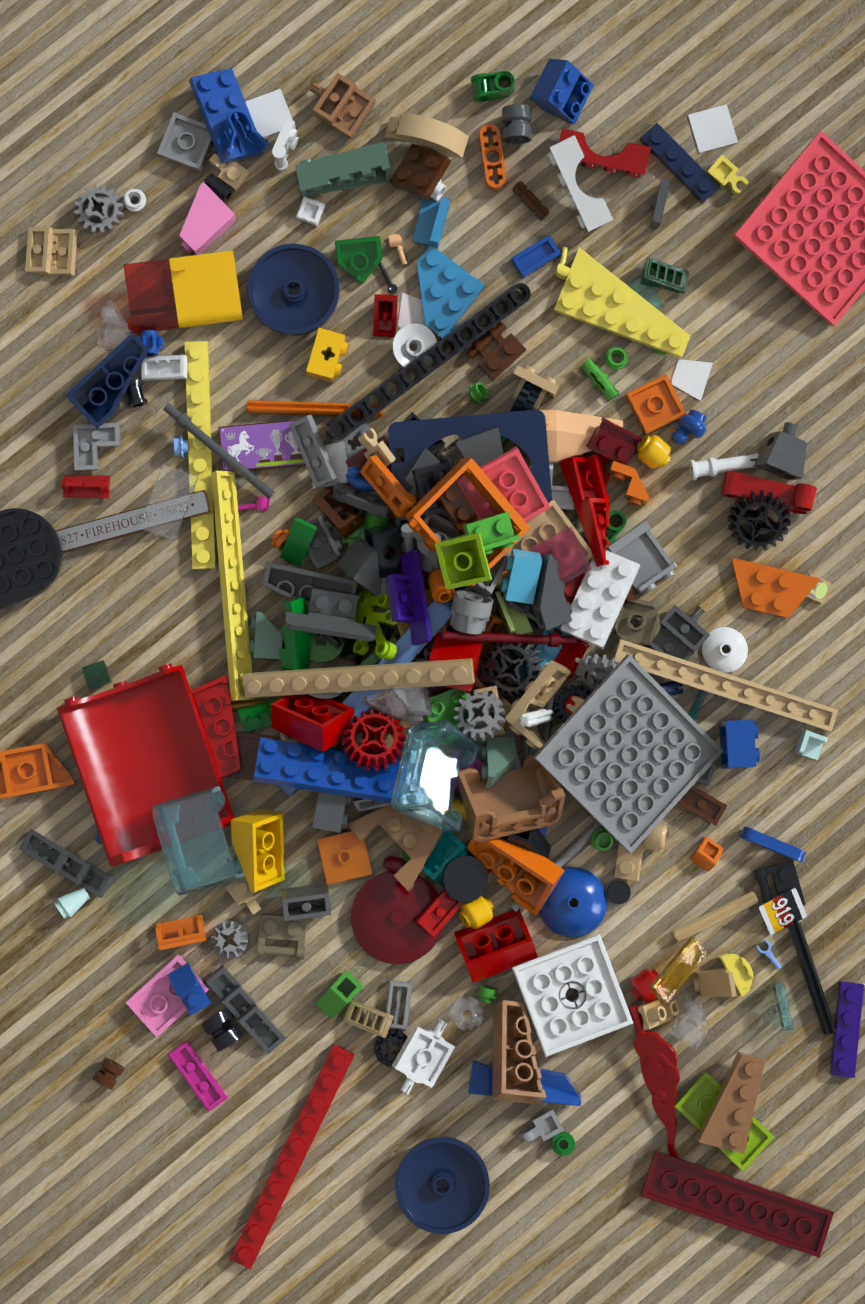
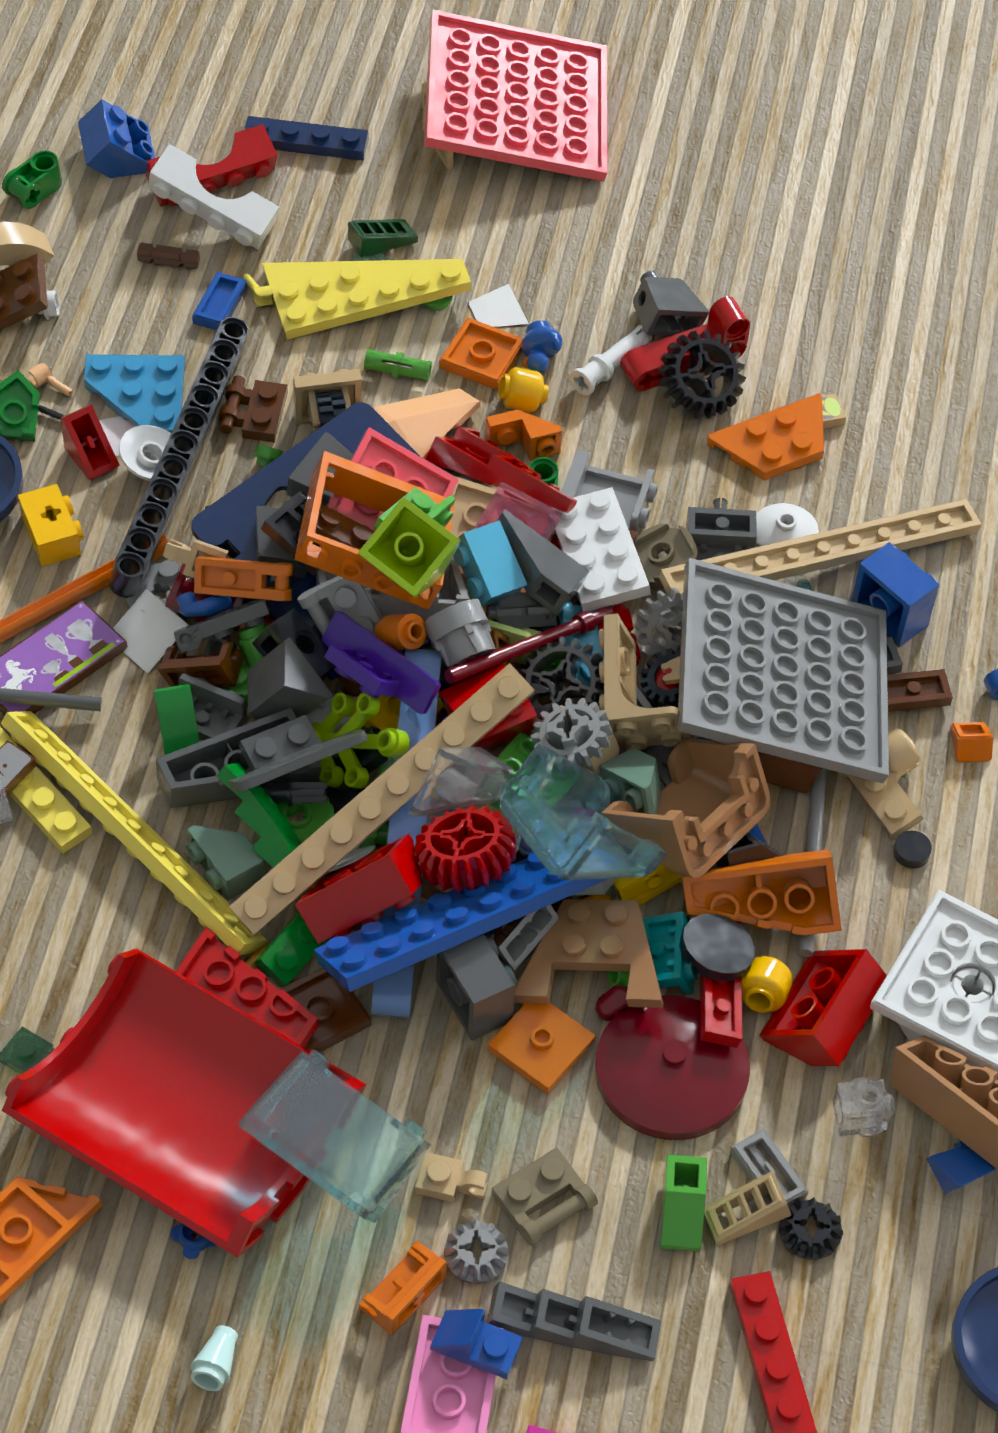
camera: 30 degrees left, 30 degrees down
(66, 863) = (167, 1314): dark grey slope -> none
(222, 1029) = (565, 1367): black wheel -> none
(260, 847) = (418, 1087): yellow slope -> none
(262, 504) = (94, 727): dark pink hand -> none
(279, 539) = (151, 743): orange plate -> none
(305, 902) = (539, 1121): flat silver brick -> none
(313, 451) = (116, 620): light grey plate -> none
(423, 1056) = (859, 1200): white plate -> none
(431, 222) = (69, 334): dark azure panel -> none
(486, 164) = (92, 254): orange beam -> none
(487, 993) = (868, 1067): bright green plate -> none
(517, 127) = (91, 194): dark grey wheel -> none
(536, 718) = (639, 693): white axle -> none
(590, 908) = (878, 916): blue dish -> none
(601, 839) = (838, 803): bright green plate -> none
(614, 442) = (467, 401): dark red plate -> none
(616, 351) = (397, 335): bright green plate -> none
(658, 203) = (316, 177): dark grey plate -> none
(712, 128) = (313, 94): white sticker -> none
(724, 173) = (366, 116): light yellow plate -> none
(810, 744) = (969, 551): light aqua panel -> none

